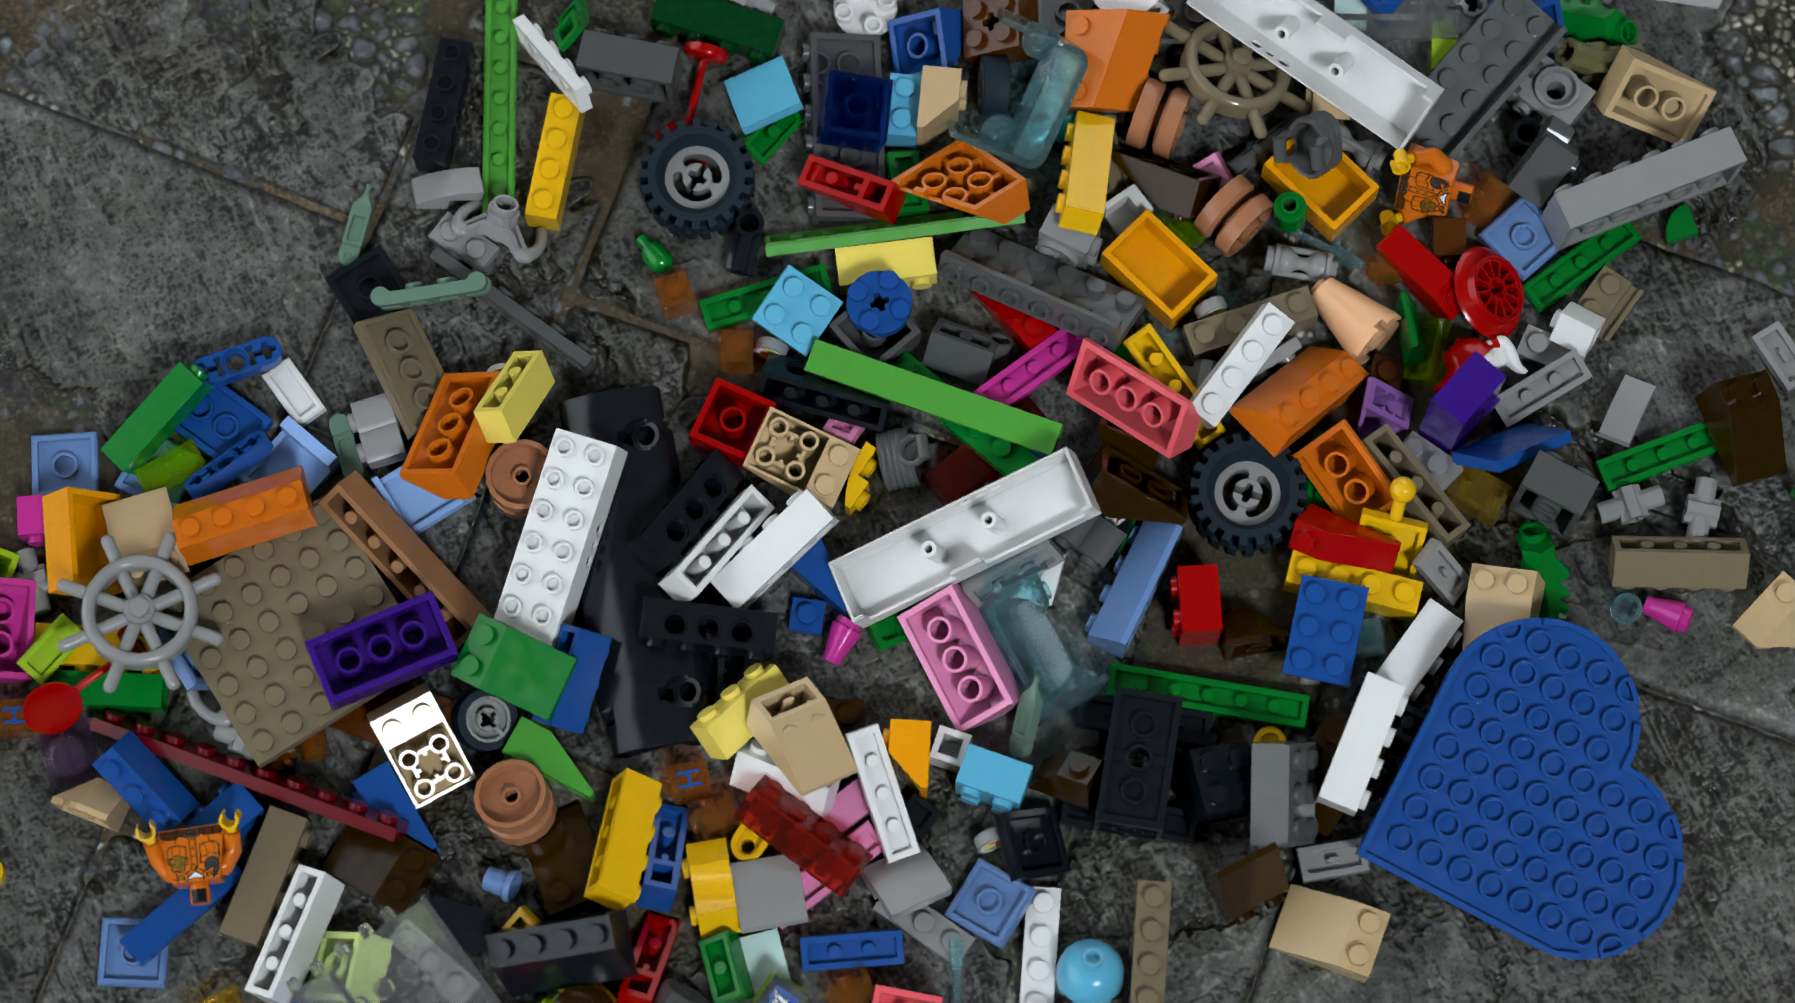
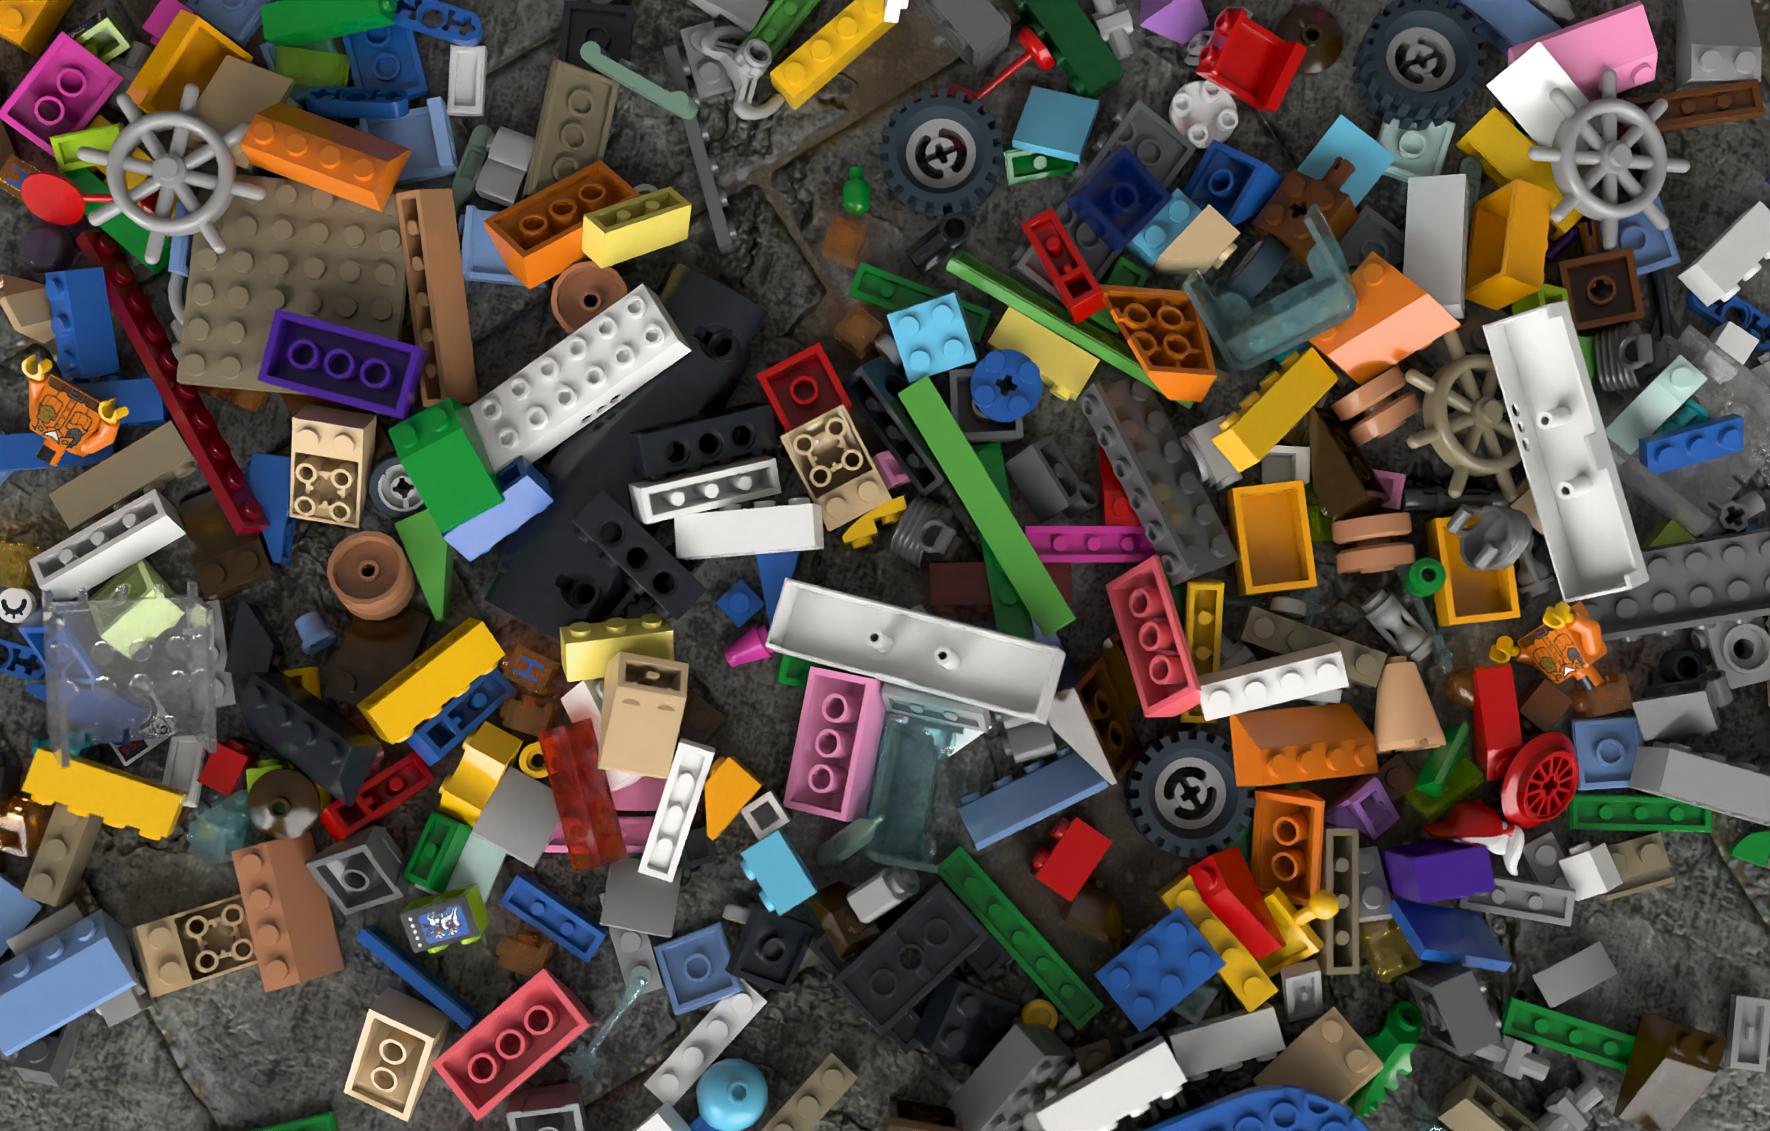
camera: 35 degrees right, 10 degrees up
(1082, 729) = (883, 892): none -> light grey brick

